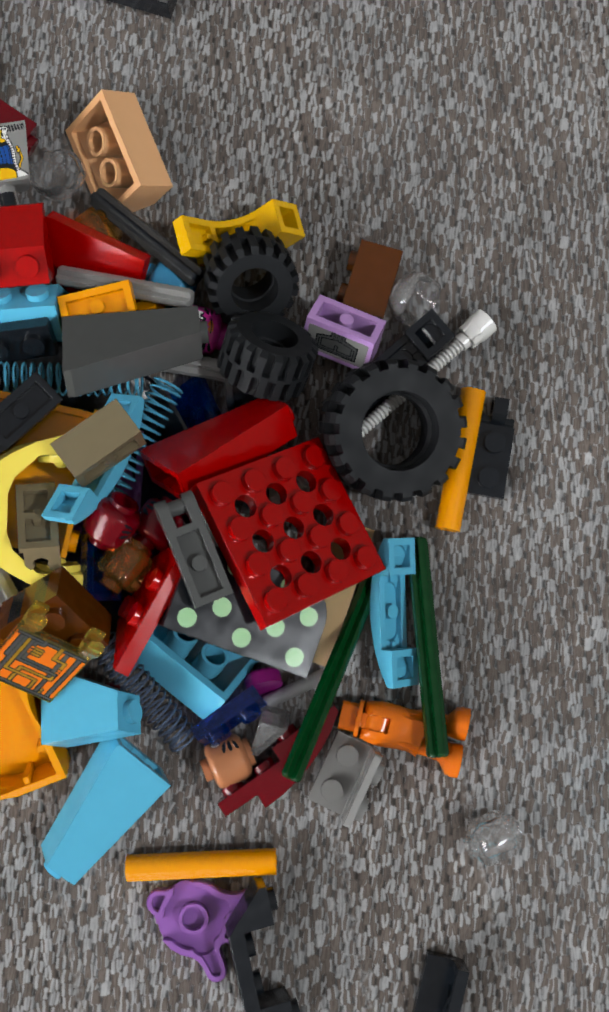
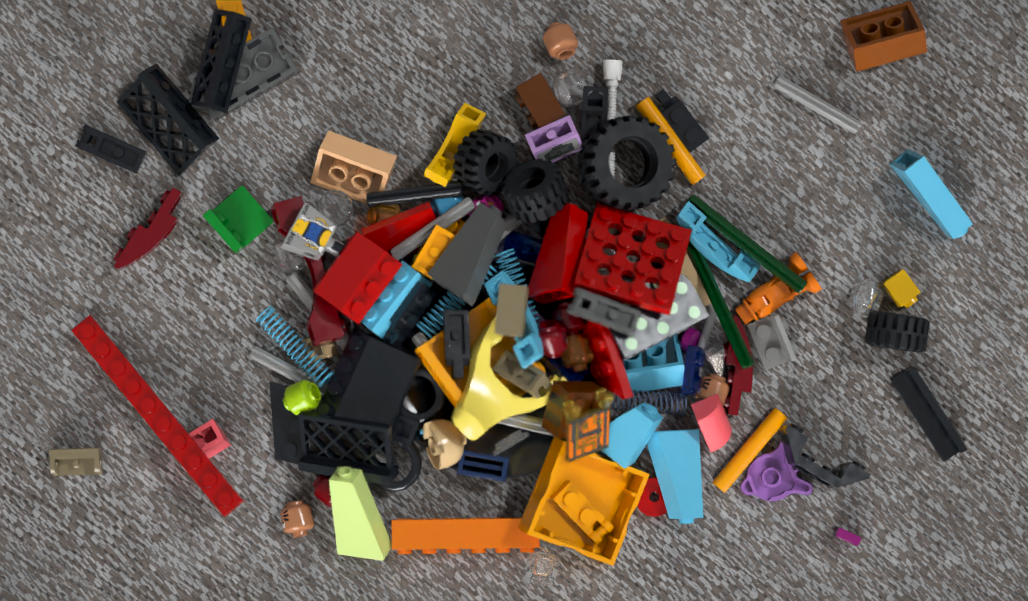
camera: 55 degrees left, 5 degrees up
(35, 805) = (647, 506): none -> red piece
(192, 794) = (713, 421): none -> coral brick
(456, 245) = (560, 40): none -> nougat head
(490, 915) = (897, 331): none -> black tyre
(540, 869) = (901, 289): none -> yellow brick

